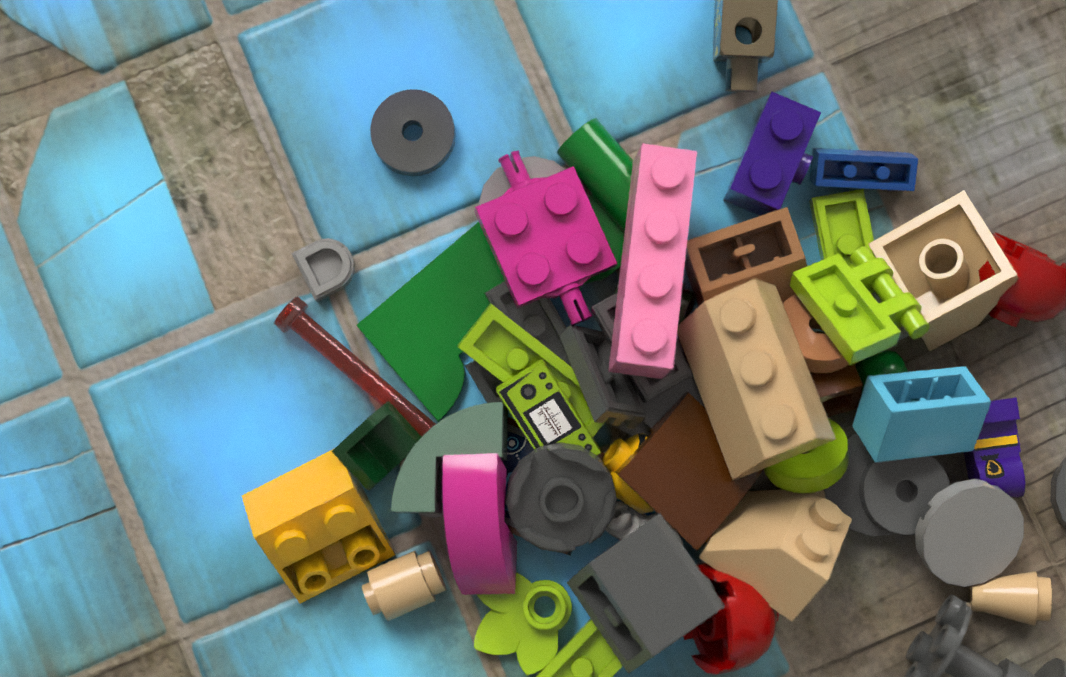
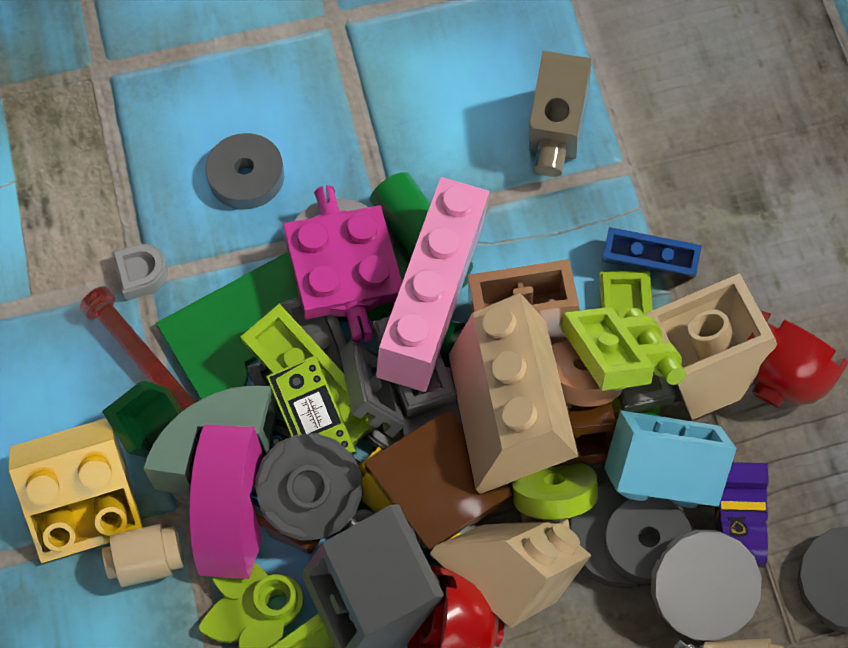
camera: 10 degrees right, 20 degrees down
(773, 156) = (568, 222): dark purple brick -> none

